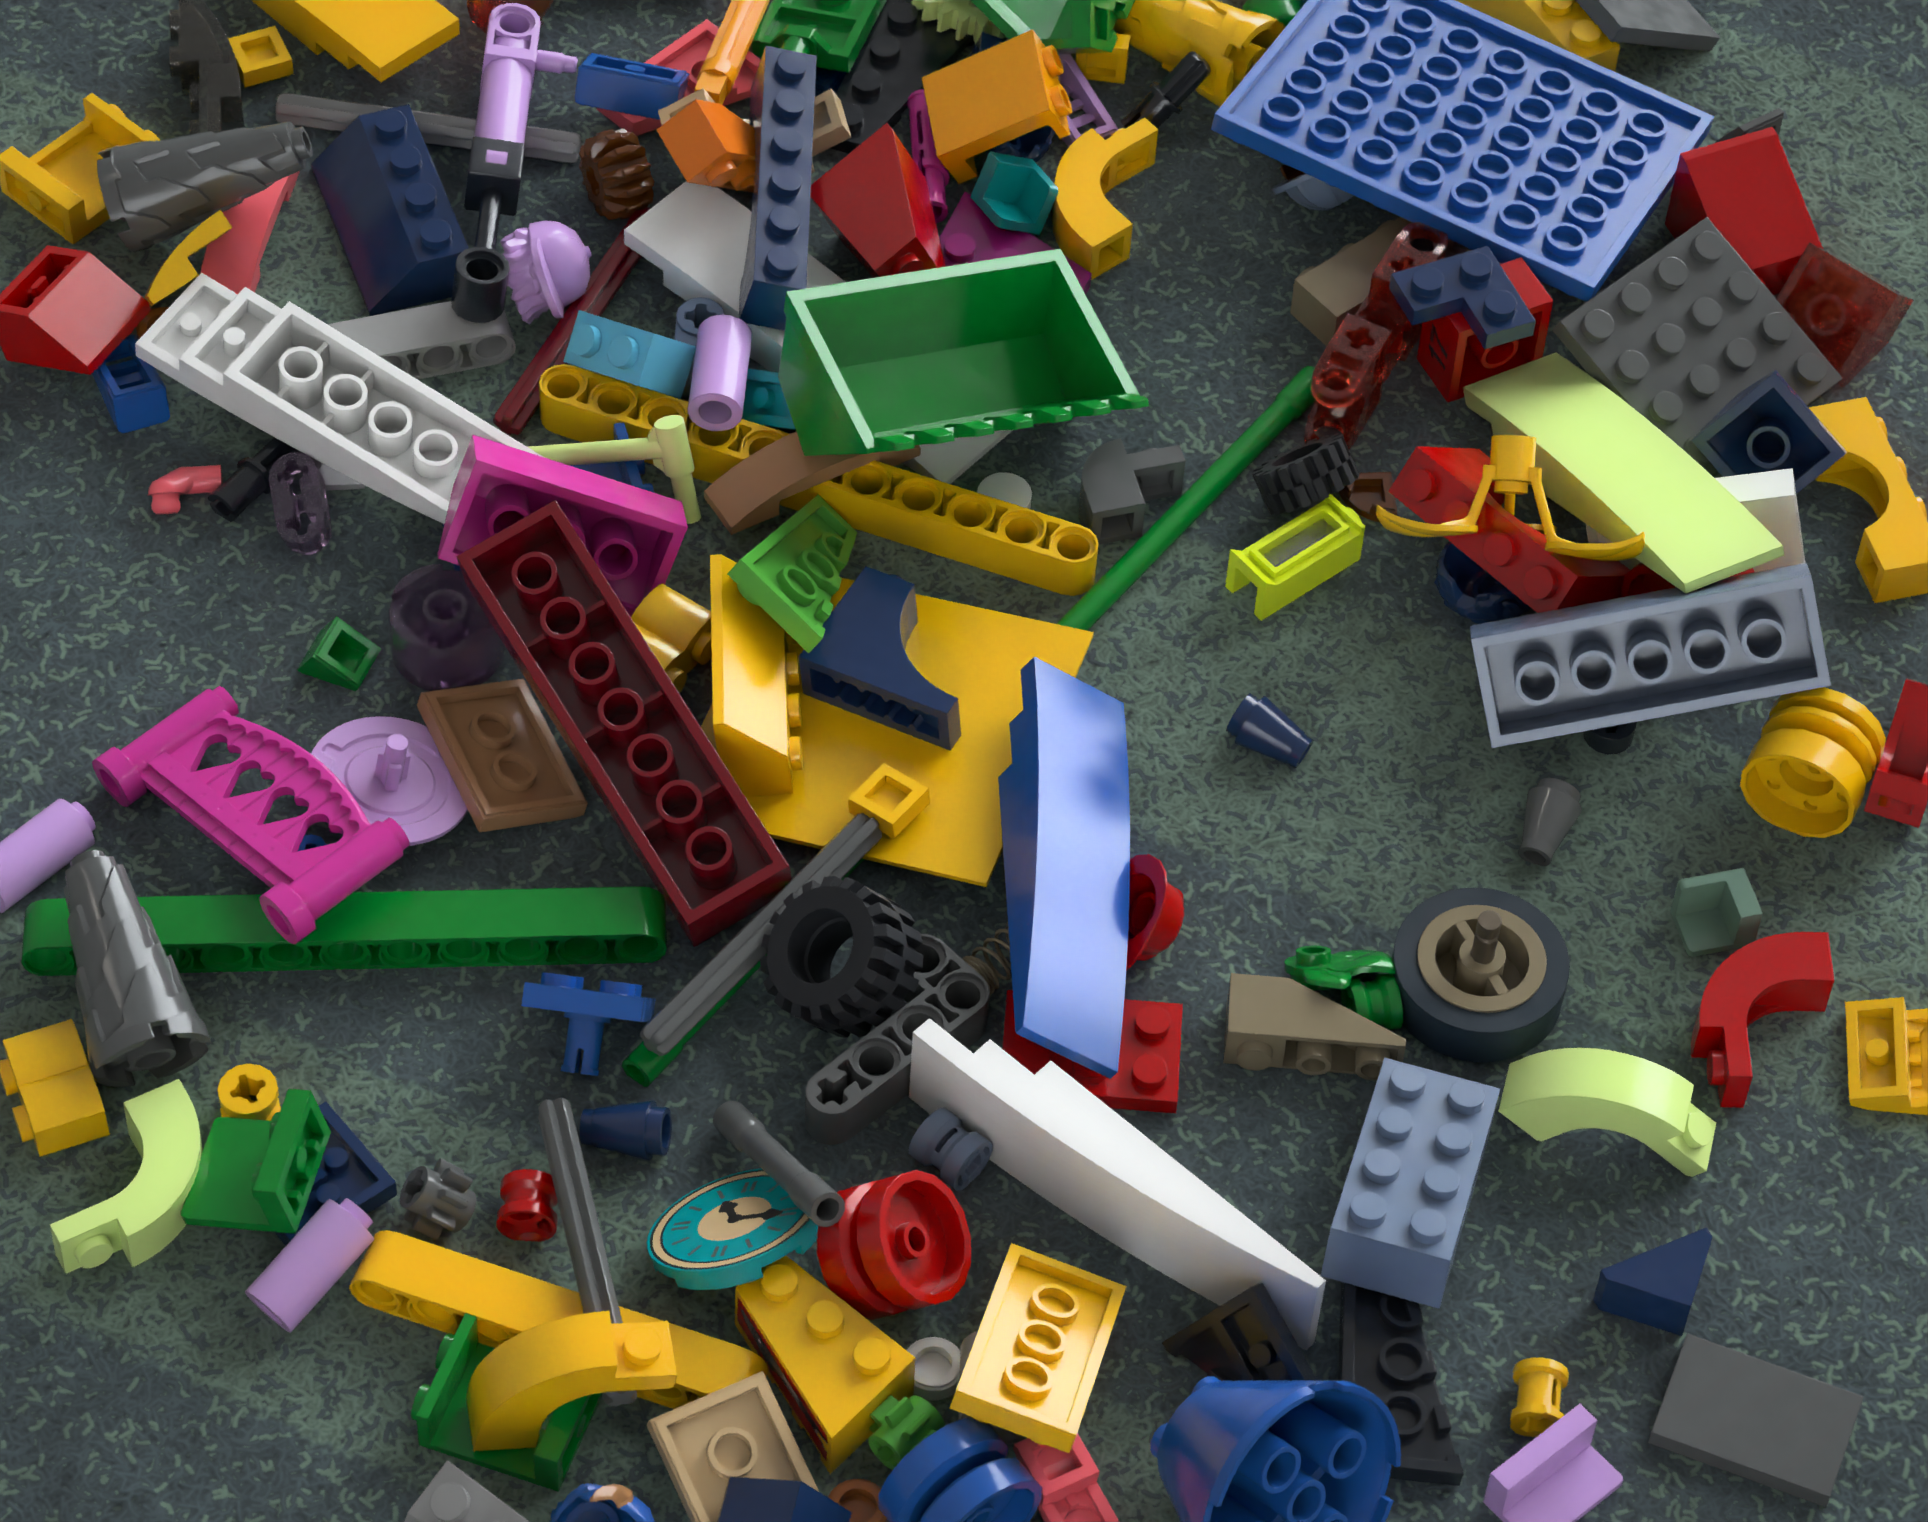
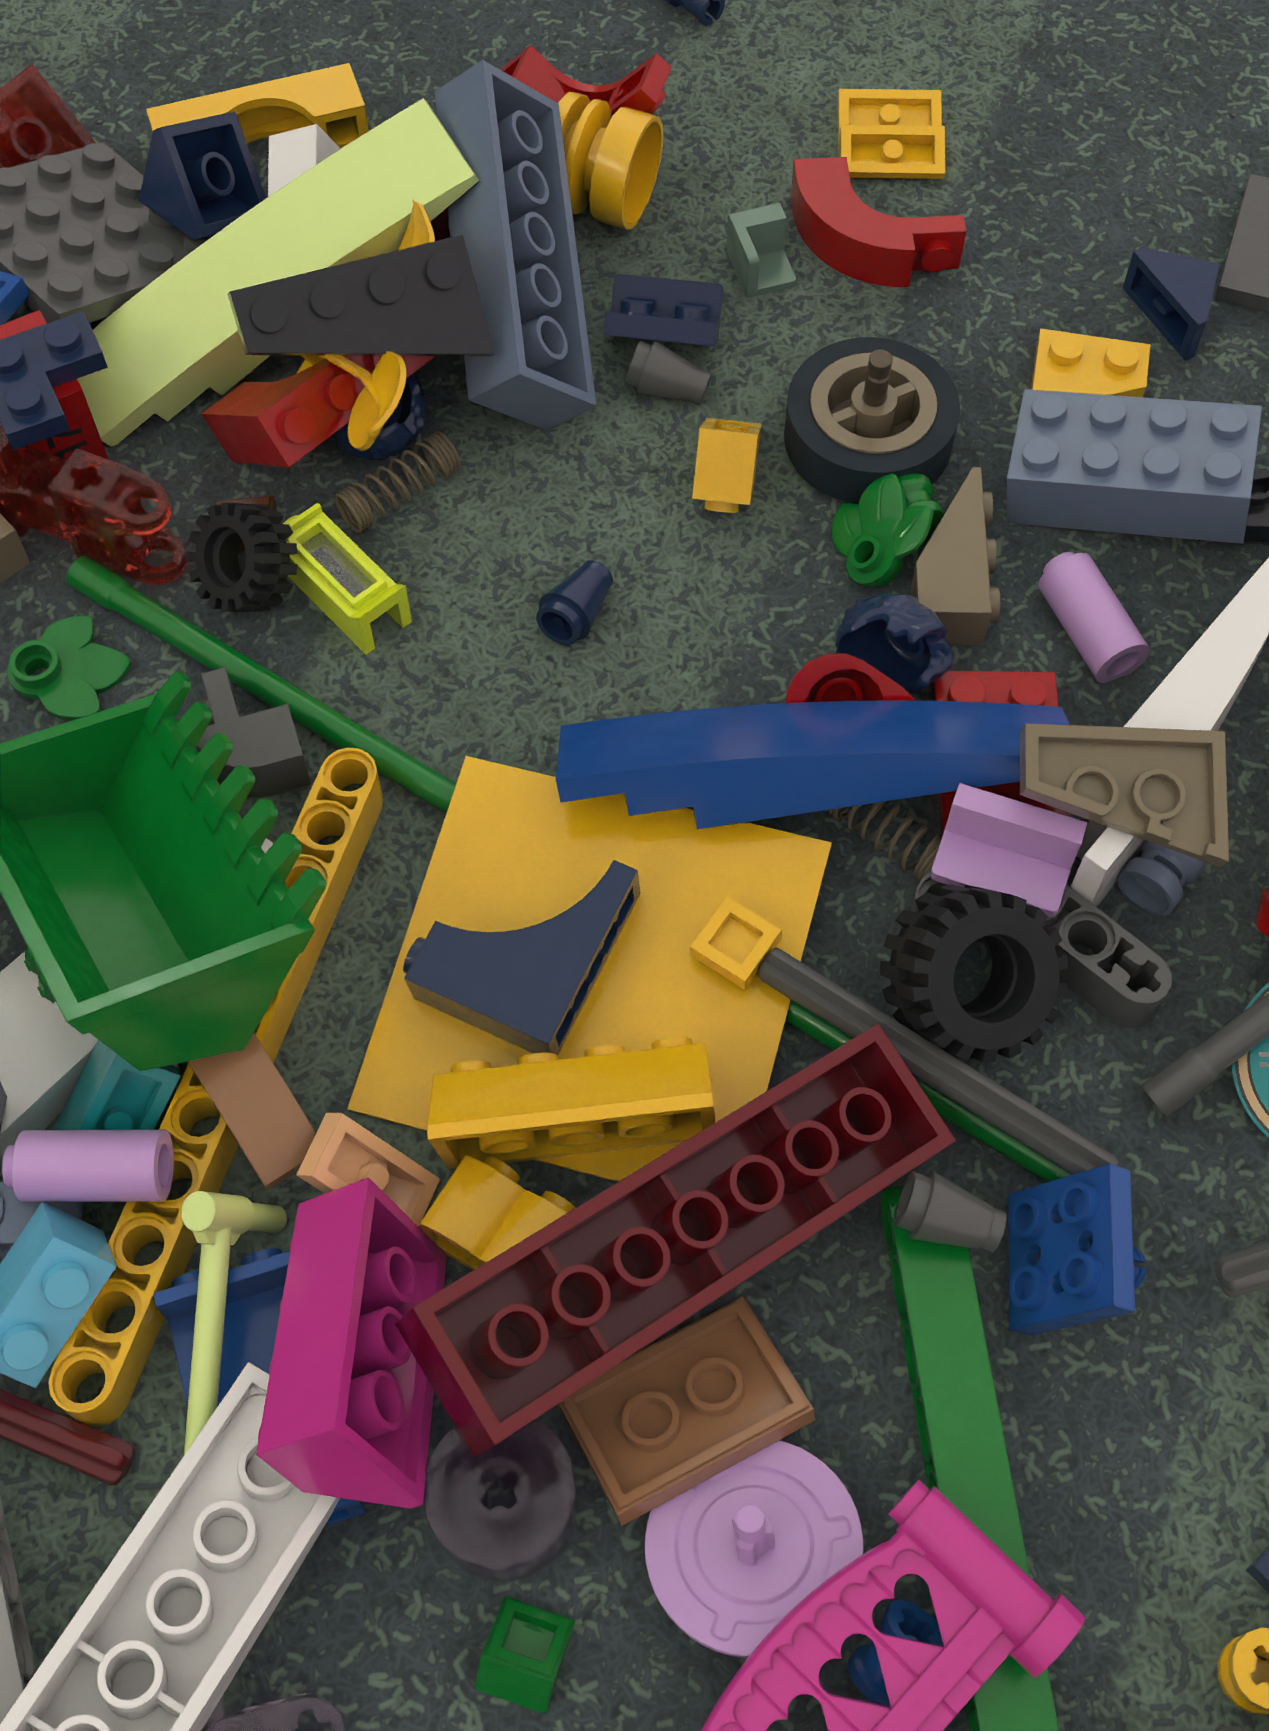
camera: 90 degrees left, 10 degrees up
(623, 905) = (947, 1214): none -> dark grey cone
(628, 1129) = (1203, 1203): dark blue cone -> none
(710, 531) = (349, 1153): none -> light nougat slope
(798, 570) = (415, 1052): bright green wing -> none
(956, 987) = (1008, 848): none -> lavender panel
(993, 1049) = (1134, 780): none -> dark tan wing
(1205, 956) = (897, 639): none -> dark blue hair
(1210, 379) = (73, 666): none -> green plate
(1242, 1138) = (1092, 616): none -> lavender brick
(1391, 576) = (438, 452): none -> dark tan piece
(1433, 852) = (726, 463): none -> yellow slope
(1520, 516) = (395, 302): none -> black wing
(1564, 1191) = (1089, 364): none -> yellow wing
(1610, 1092) = (1008, 327): yellowish green arch -> none
(1618, 818) = (664, 310): none -> dark blue bracket

